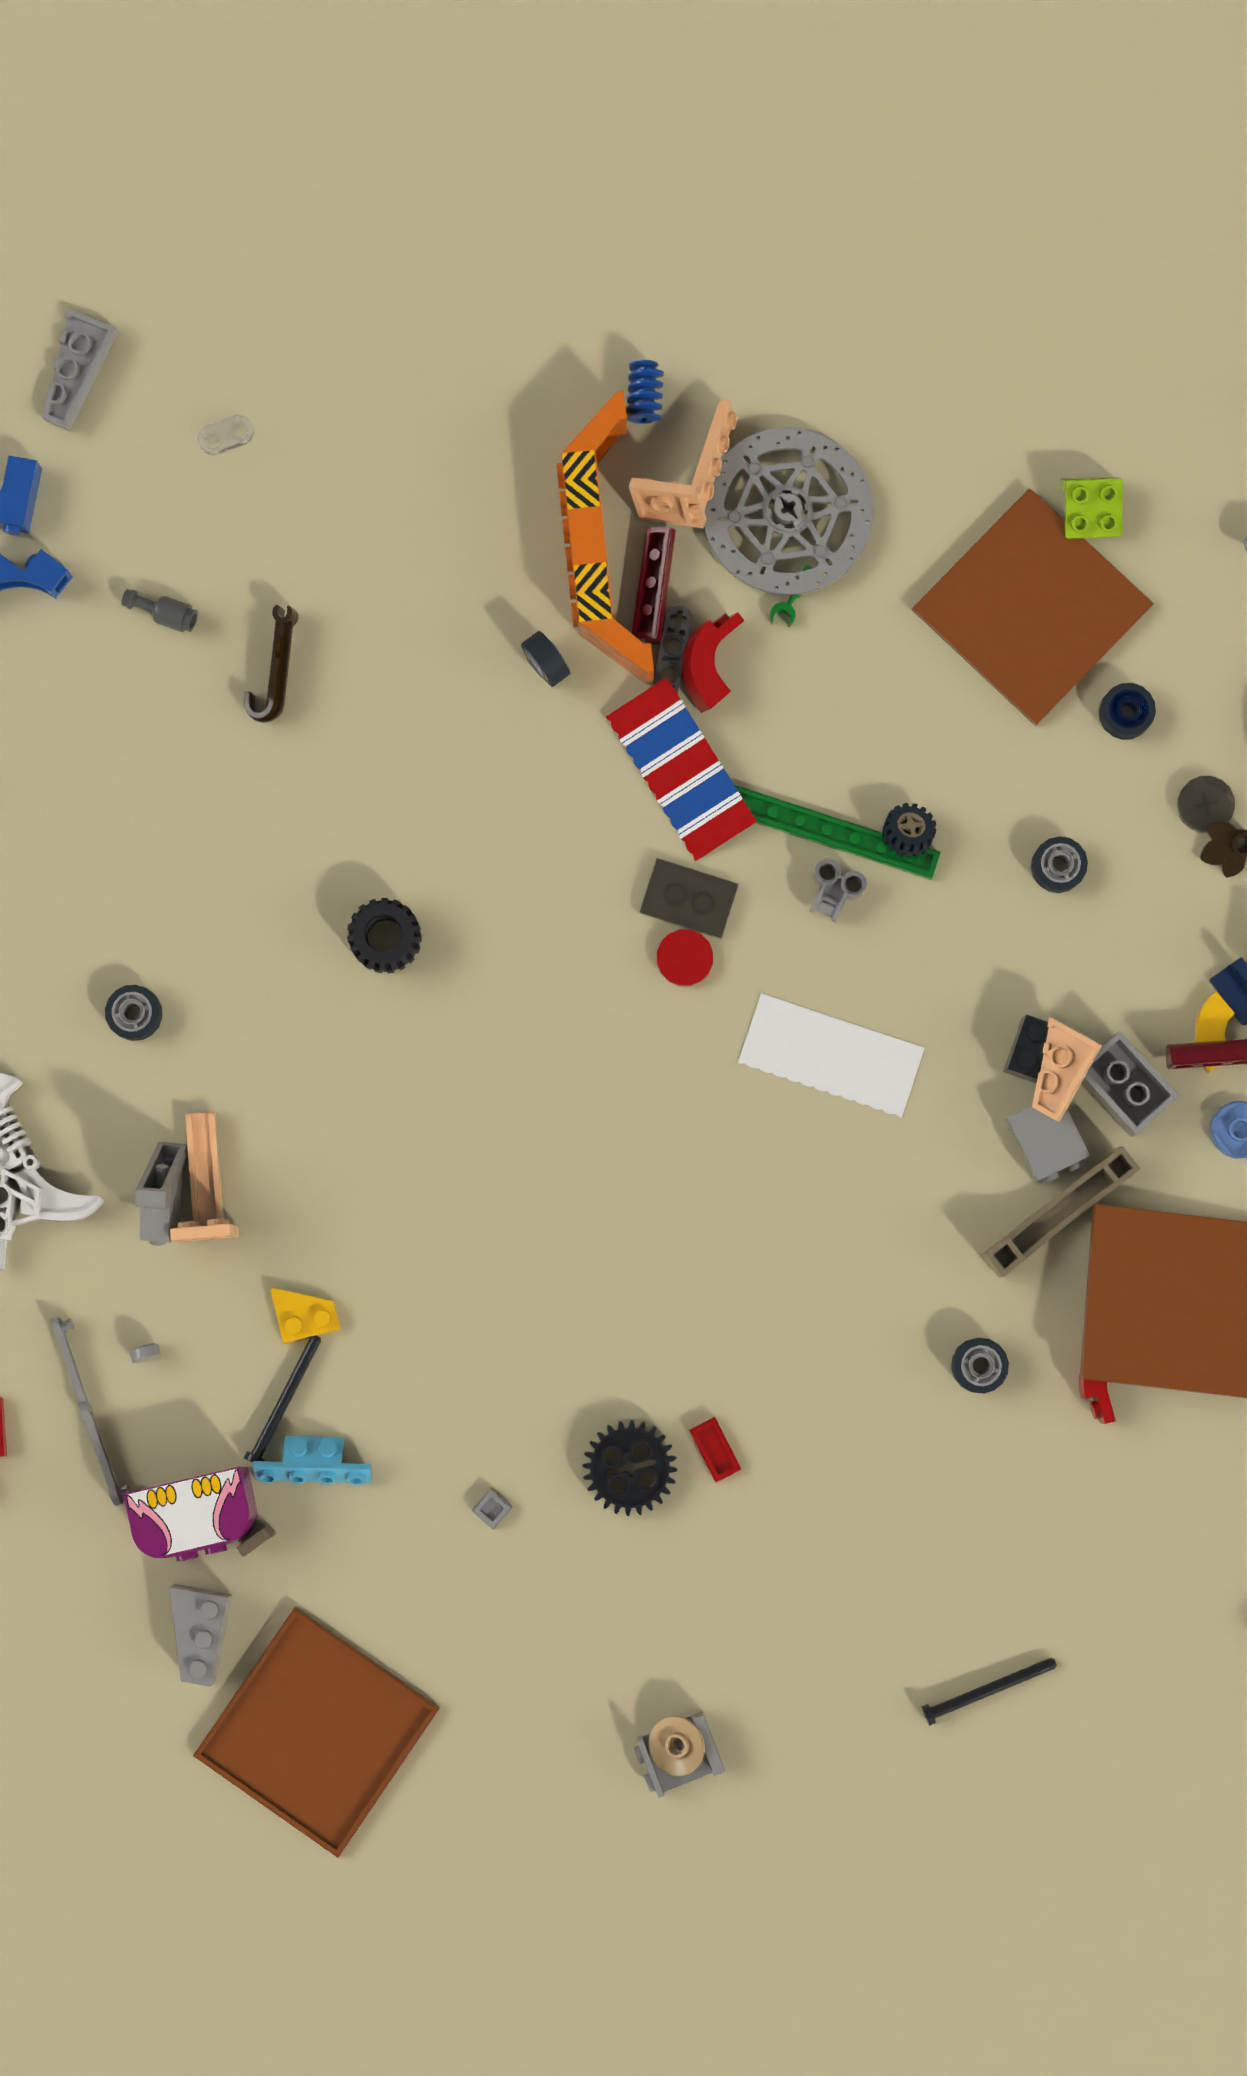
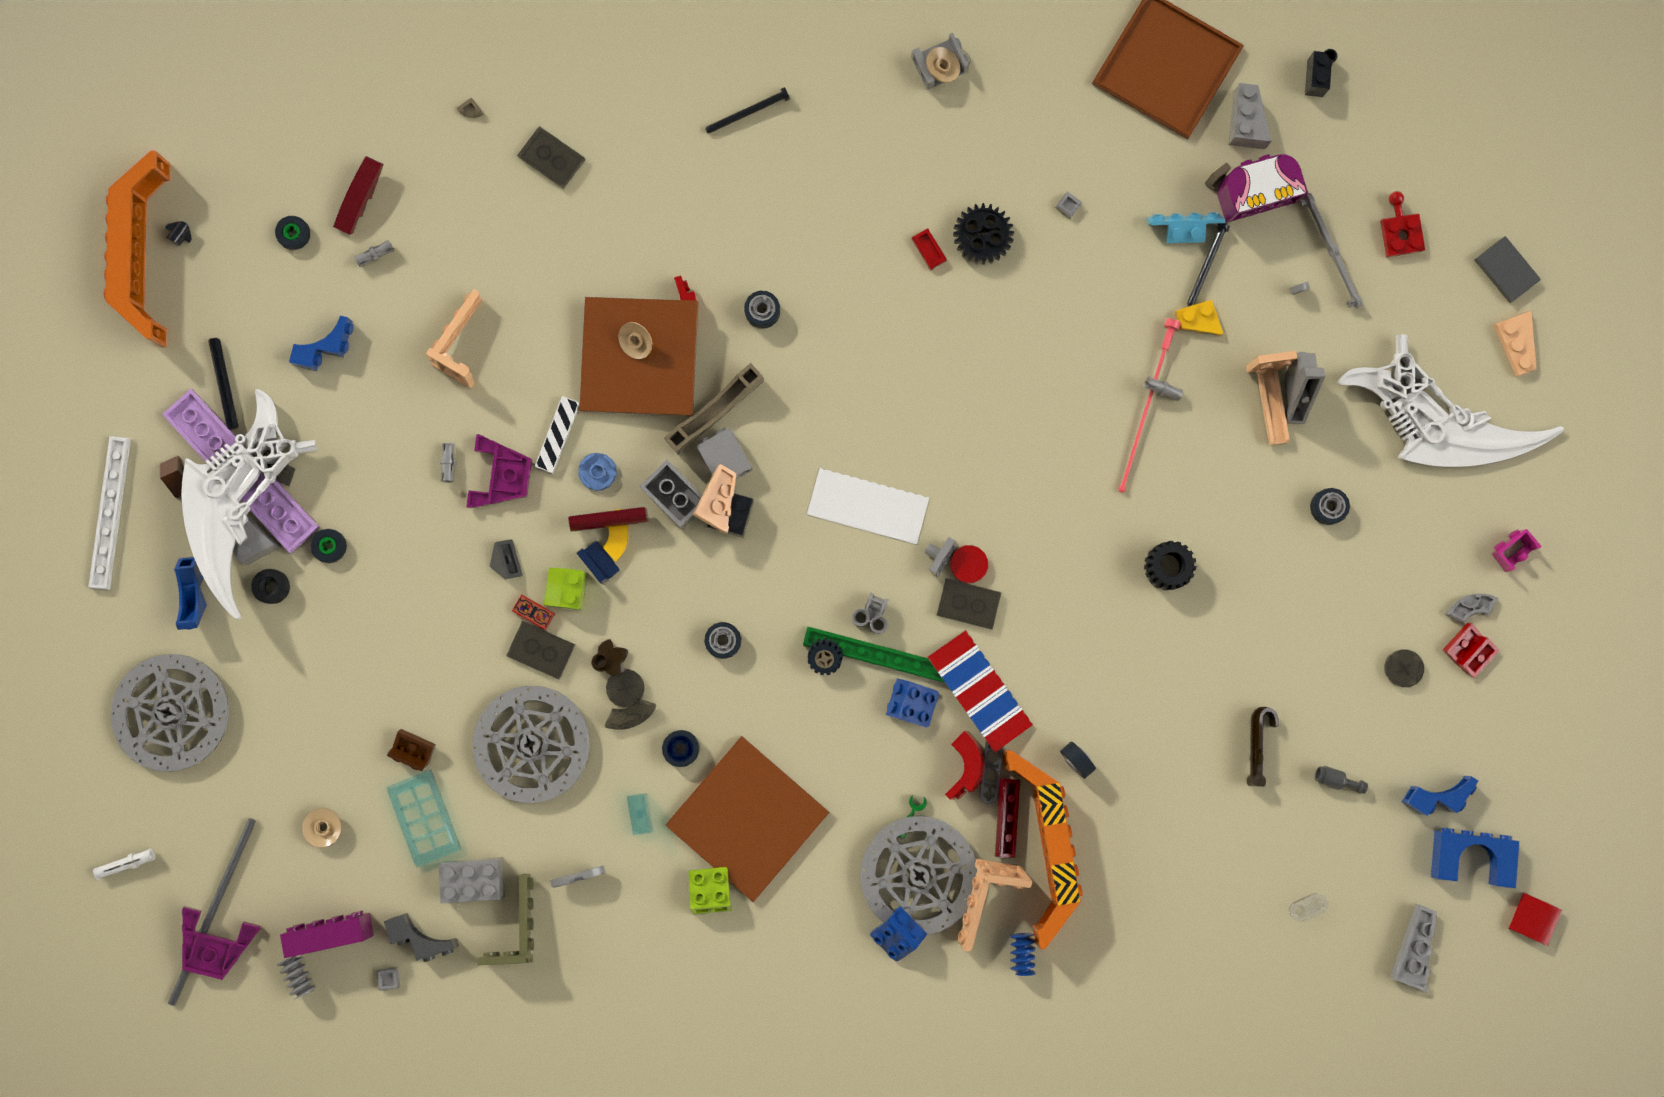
camera: 170 degrees right, 0 degrees up
(47, 767) = (1404, 668): none -> clear smoke tile
(78, 1701) = (1319, 72): none -> black hinge
(348, 1304) = (1171, 325): none -> coral piece
(371, 1206) = (1163, 388): none -> light grey pin
(727, 972) = (940, 555): none -> light grey tile
(782, 756) = (912, 702): none -> blue bracket
(821, 429) = (898, 935): none -> blue bracket
(1179, 1320) = (635, 340): none -> tan dish
(1189, 621) = (640, 814): none -> clear light blue panel
(1200, 761) = (630, 717): none -> clear smoke tile

